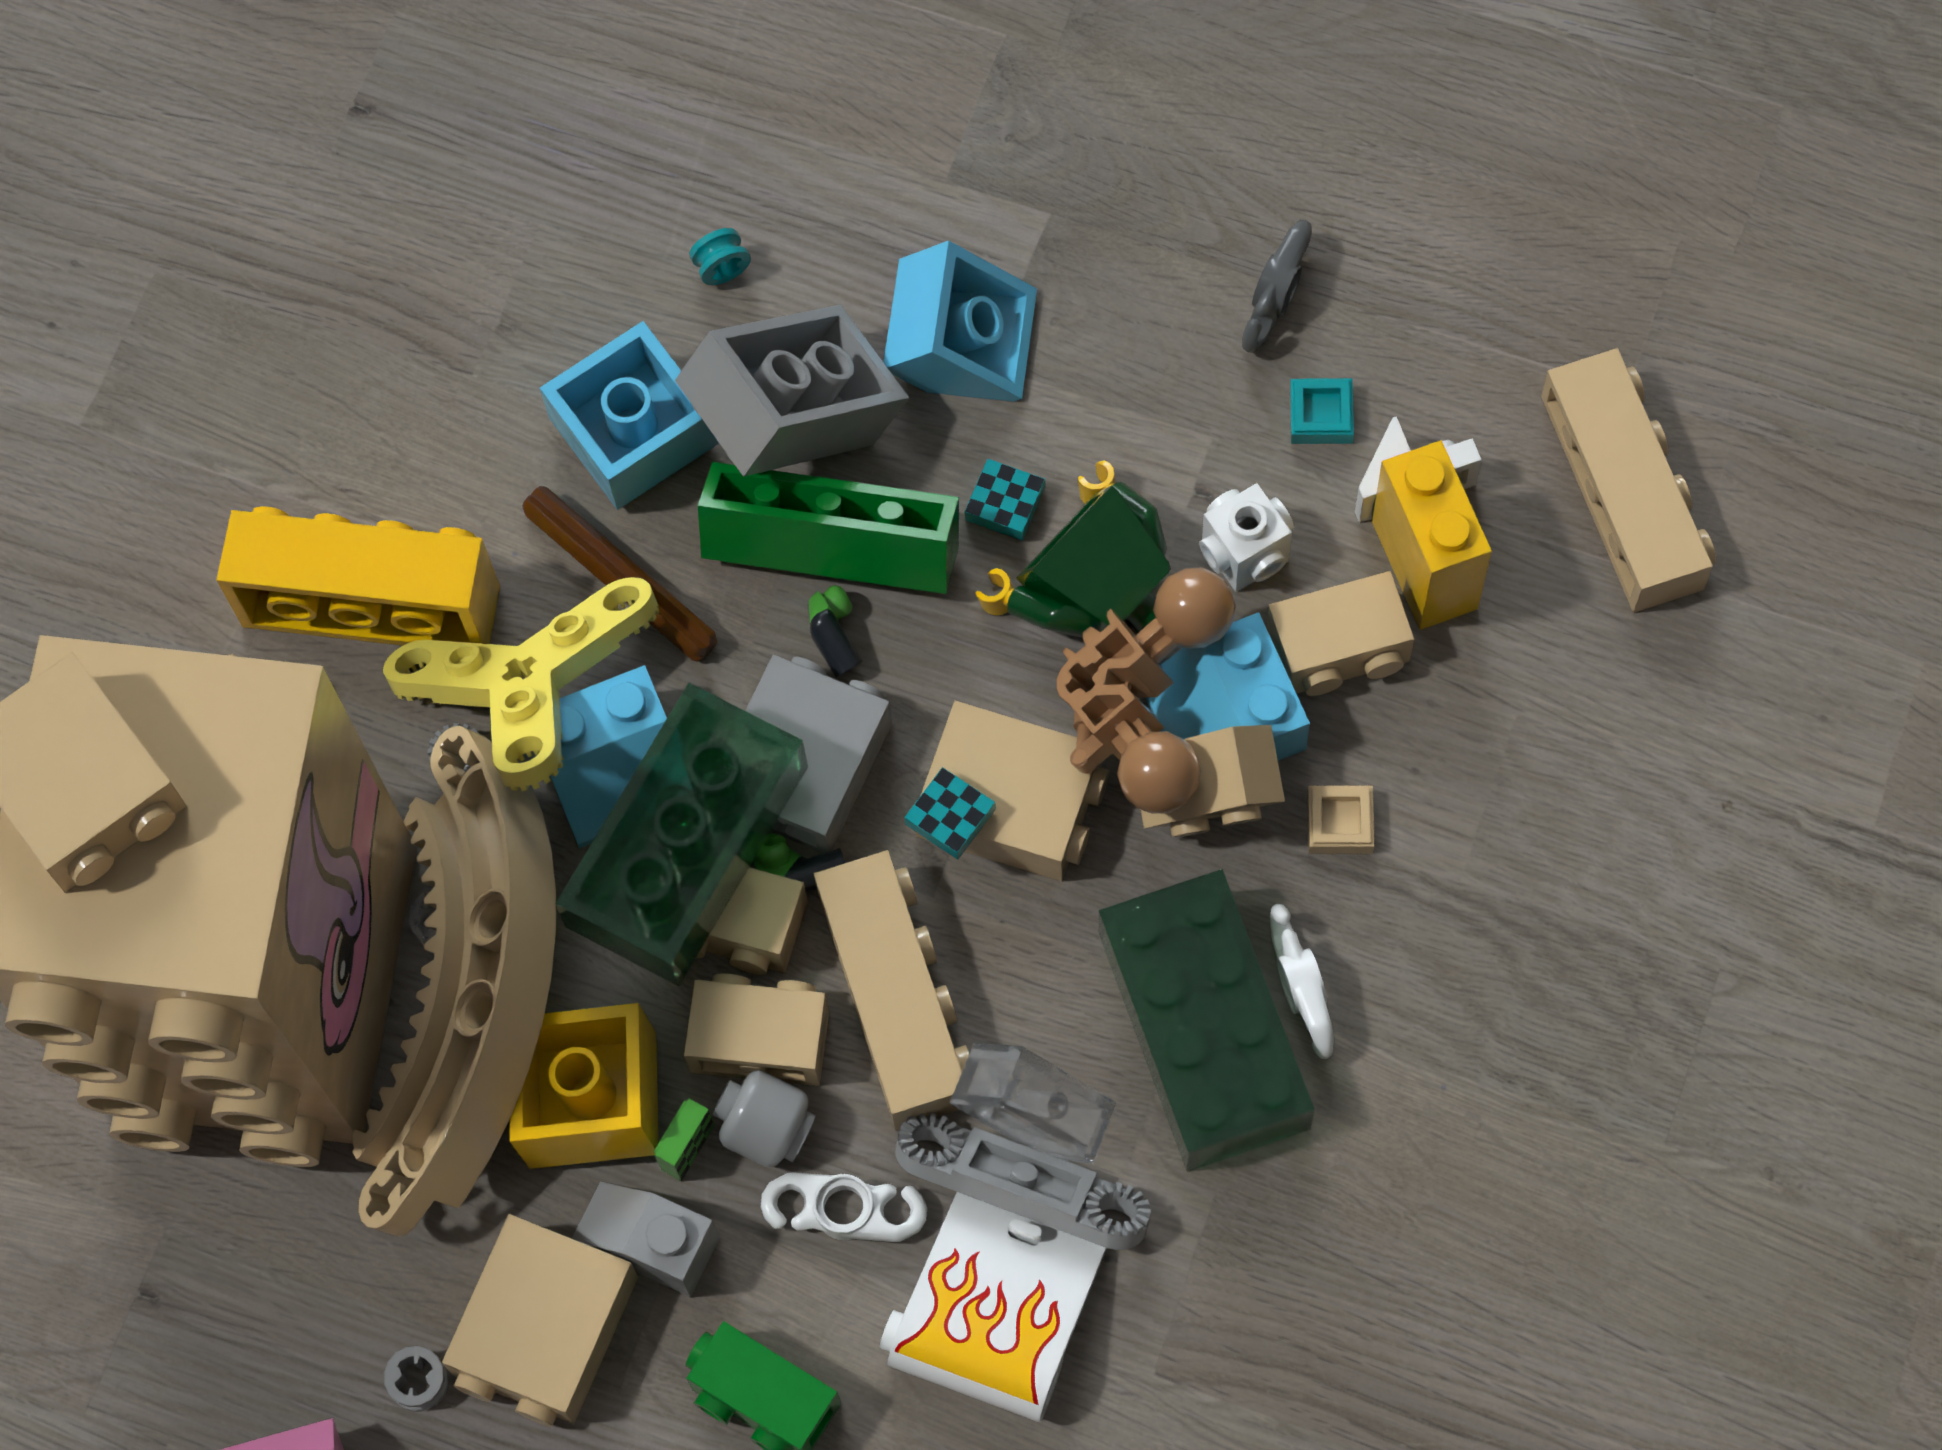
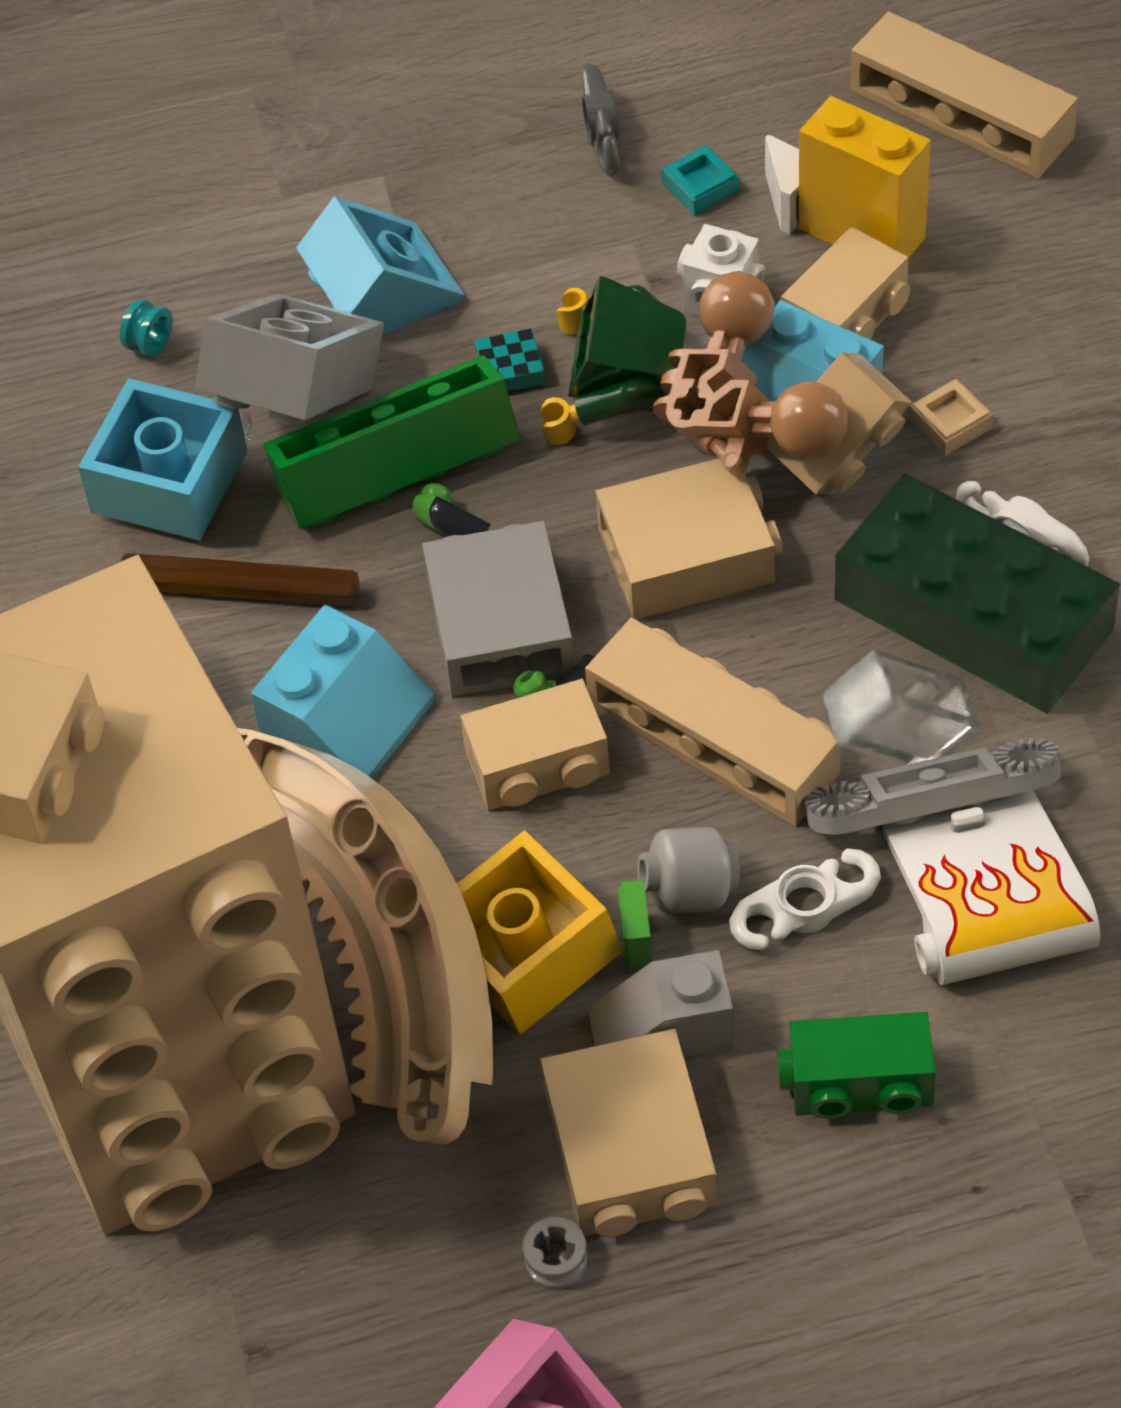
camera: 35 degrees left, 15 degrees down
(528, 709) = (241, 656): light yellow piece -> none
(683, 834) = (464, 684): clear green brick -> none
(757, 1028) = (619, 812): tan brick -> none
(950, 813) = (661, 558): tile -> none

